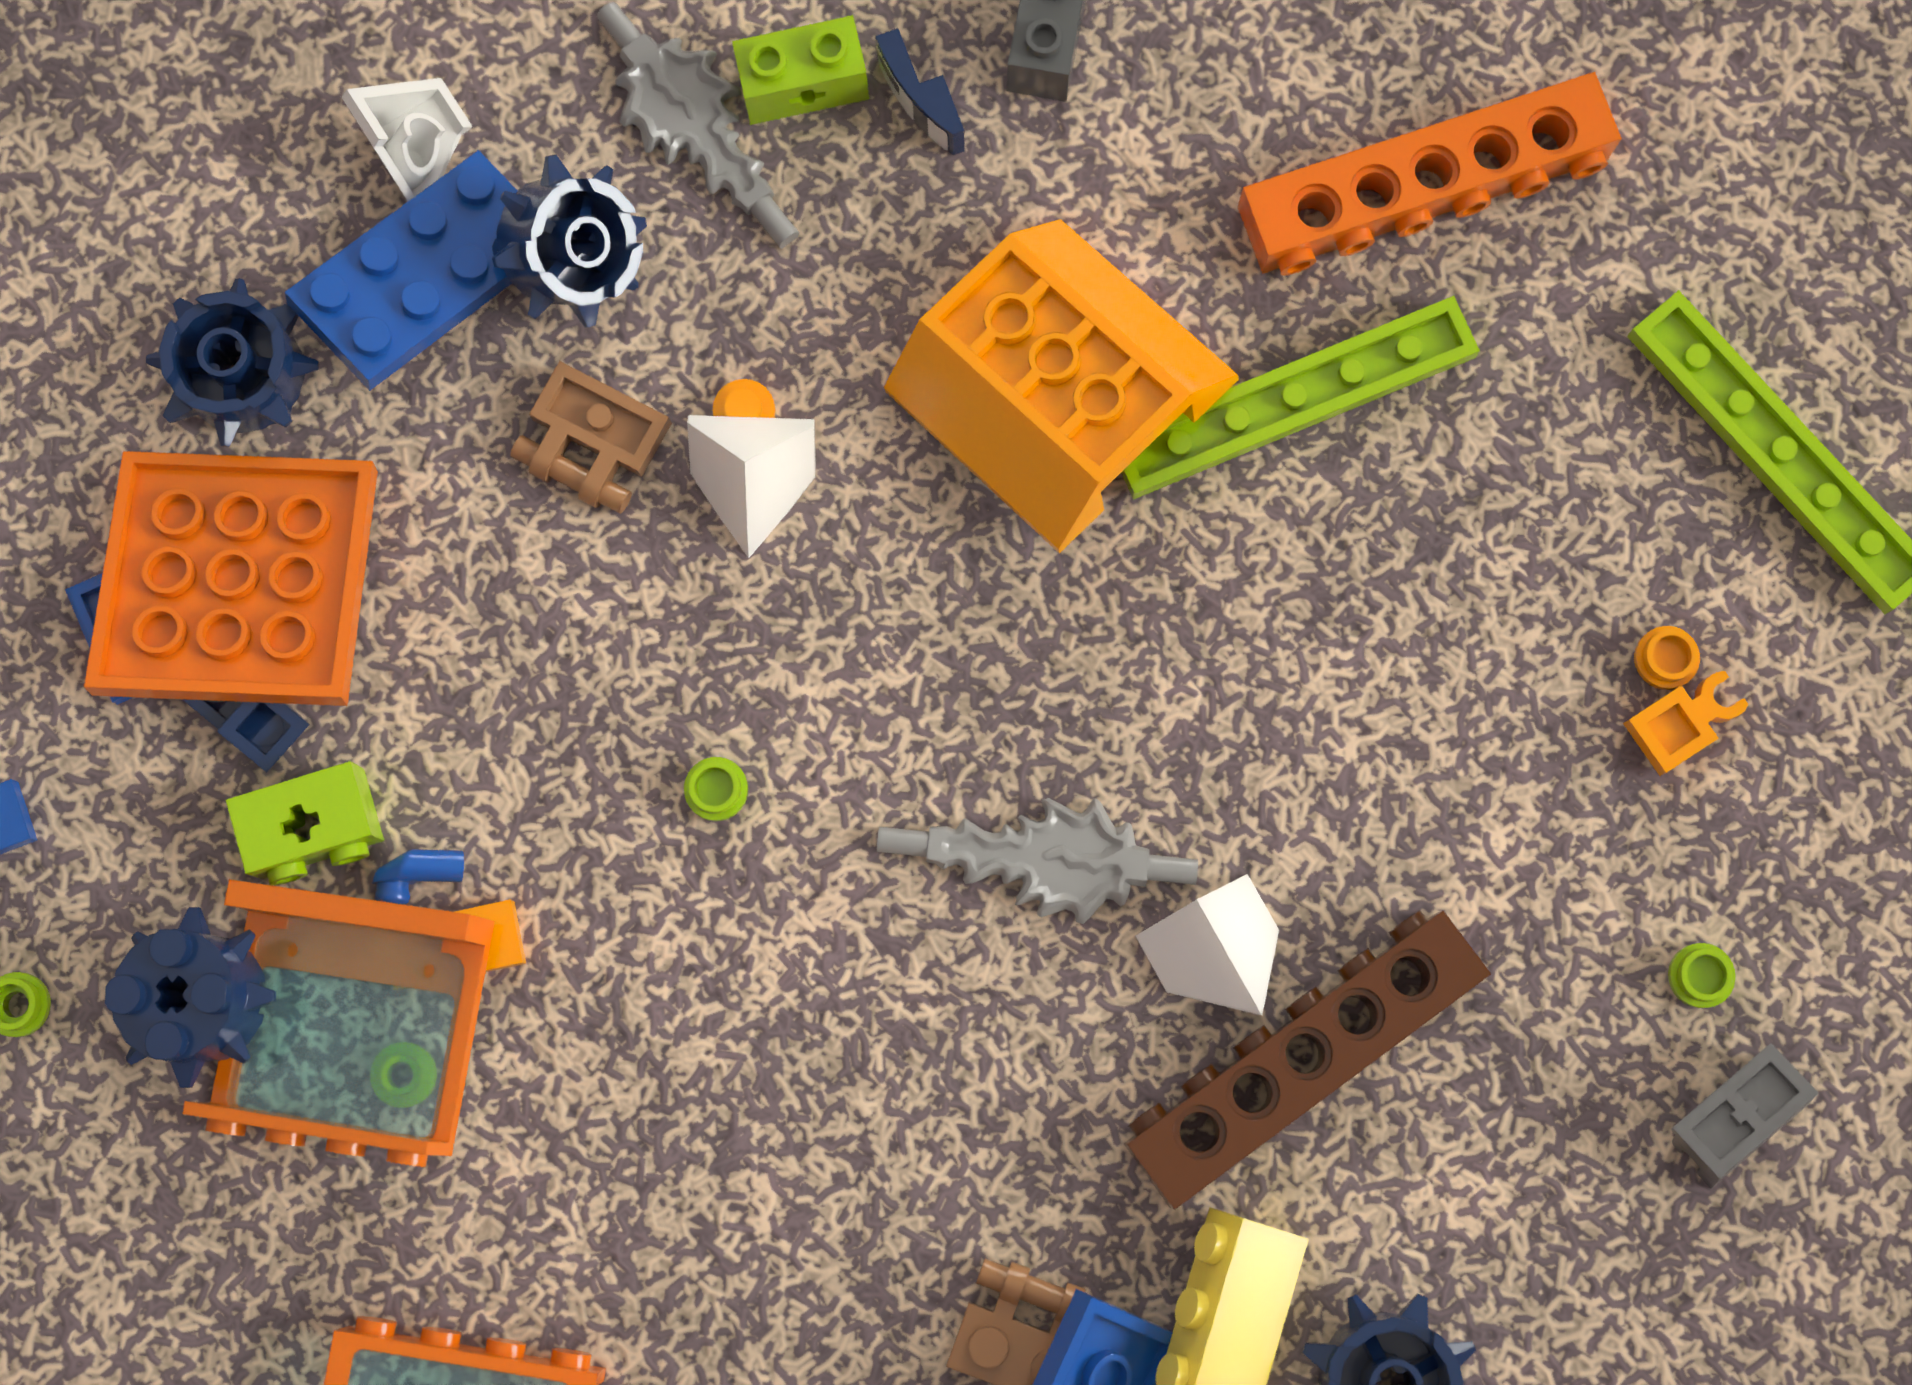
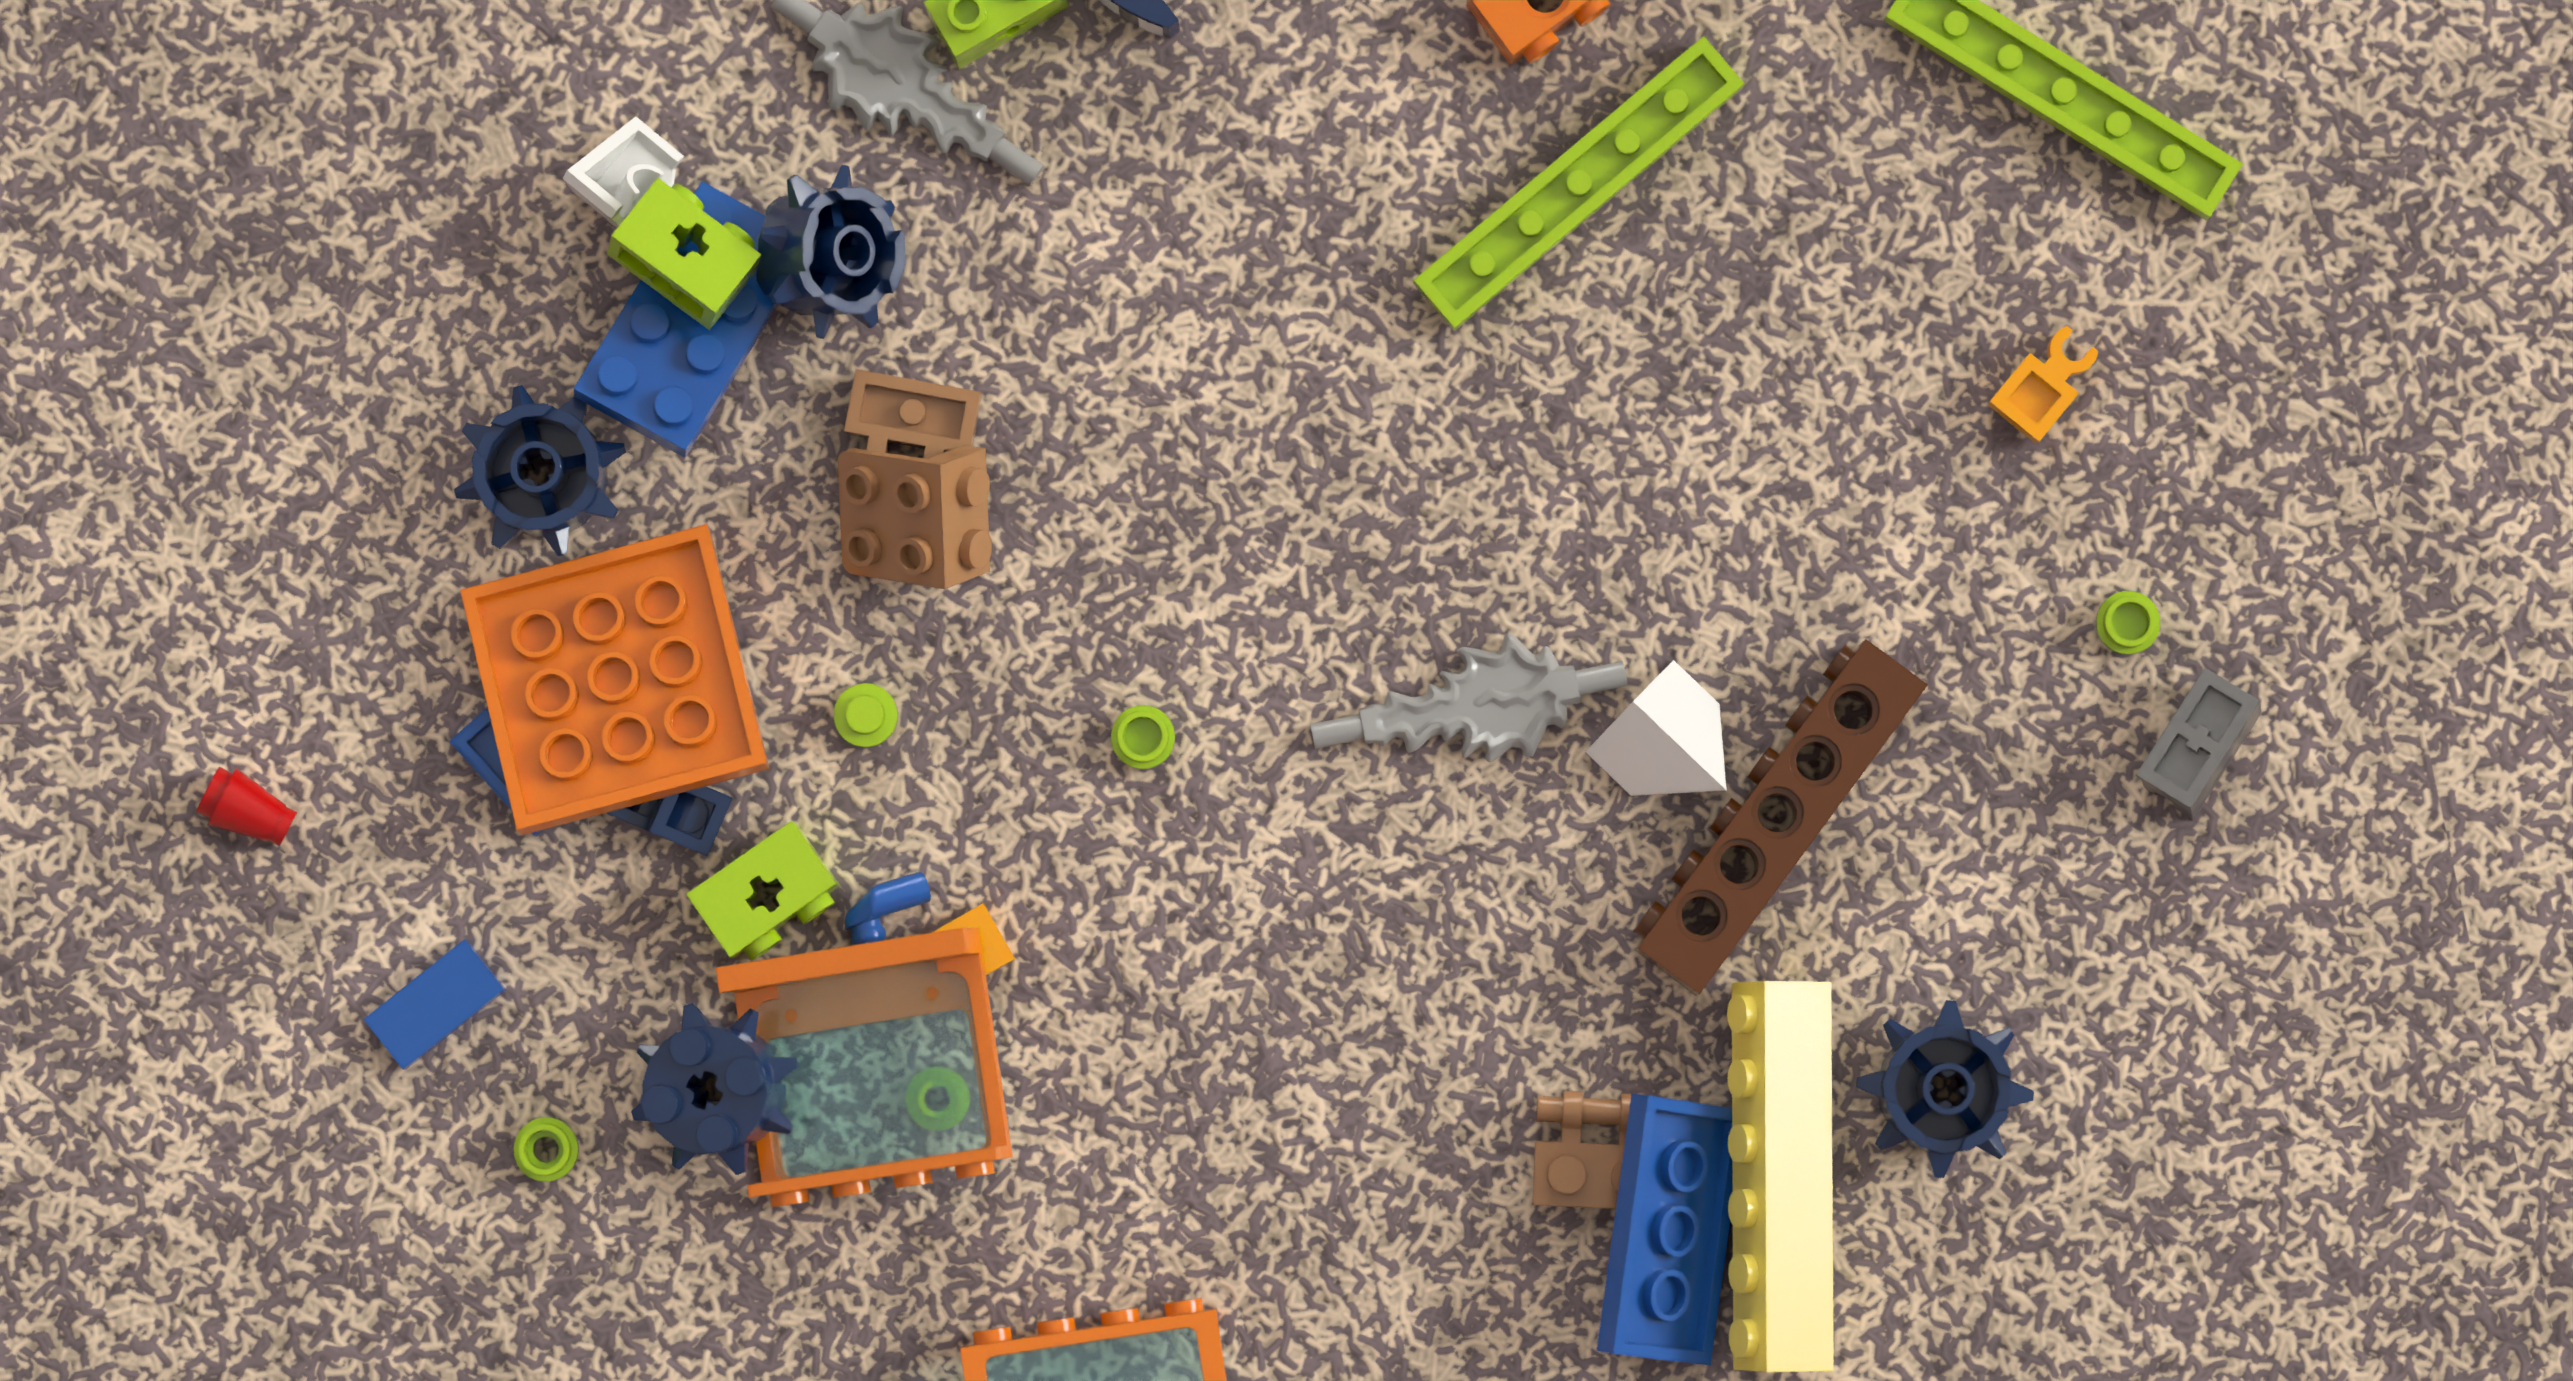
camera: 20 degrees left, 5 degrees up
(434, 229) = (703, 280): none -> lime brick
(461, 686) = (865, 715): none -> lime plate
(569, 512) = (915, 516): none -> medium nougat bracket
(744, 399) = (1049, 360): light orange plate -> none
(751, 470) = (1076, 418): white slope -> none
(1051, 376) = (1342, 237): light orange slope -> none
(1667, 657) = (2010, 327): light orange plate -> none

